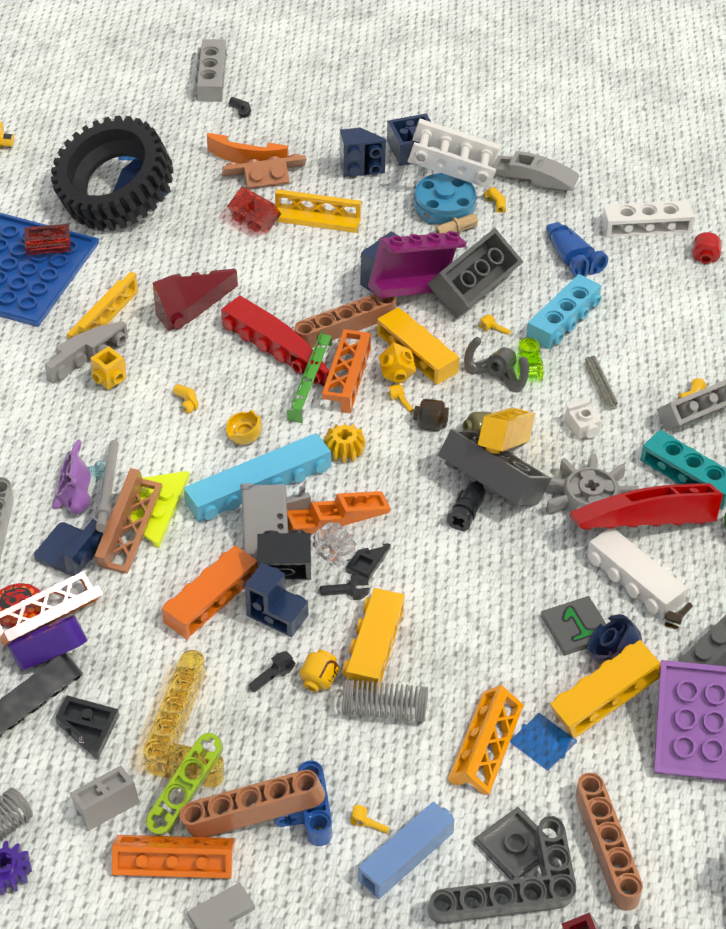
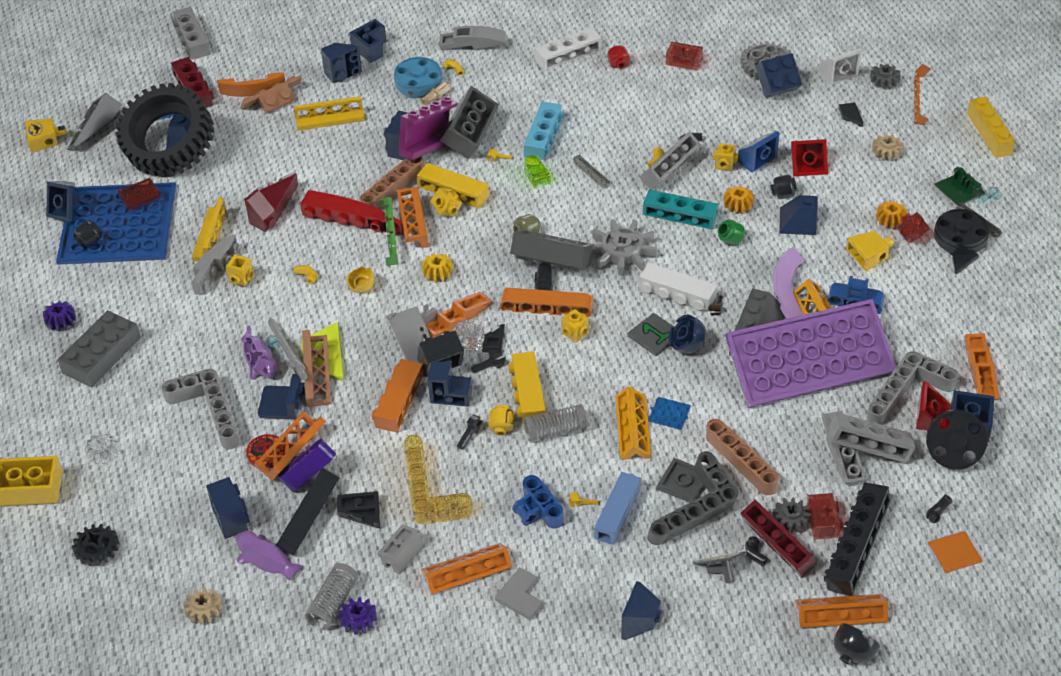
camera: 20 degrees left, 0 degrees up
(51, 138) = (98, 114): none -> dark grey wedge
(181, 128) = (188, 75): none -> dark red brick
(181, 781) = (452, 519): lime beam -> none
(243, 106) = (230, 54): black arm -> none
(254, 210) = (283, 126): clear red brick -> none
(266, 805) = (510, 506): nougat beam -> none
(278, 467) = (402, 296): medium azure brick -> none
(397, 392) = (455, 222): yellow hand -> none
(431, 414) = (487, 229): dark brown head -> none
(457, 143) = (411, 41): white fence -> none
(458, 534) = (545, 301): none -> orange beam
(476, 578) = (575, 325): none -> yellow brick
(499, 365) = (516, 180): dark grey piece -> none
(506, 429) = (549, 221): yellow brick -> none
(575, 251) = (529, 86): blue piece -> none
(583, 419) = (592, 199): white brick -> none
(606, 688) = (696, 365): yellow brick -> none
(652, 507) = (670, 241): red slope -> none

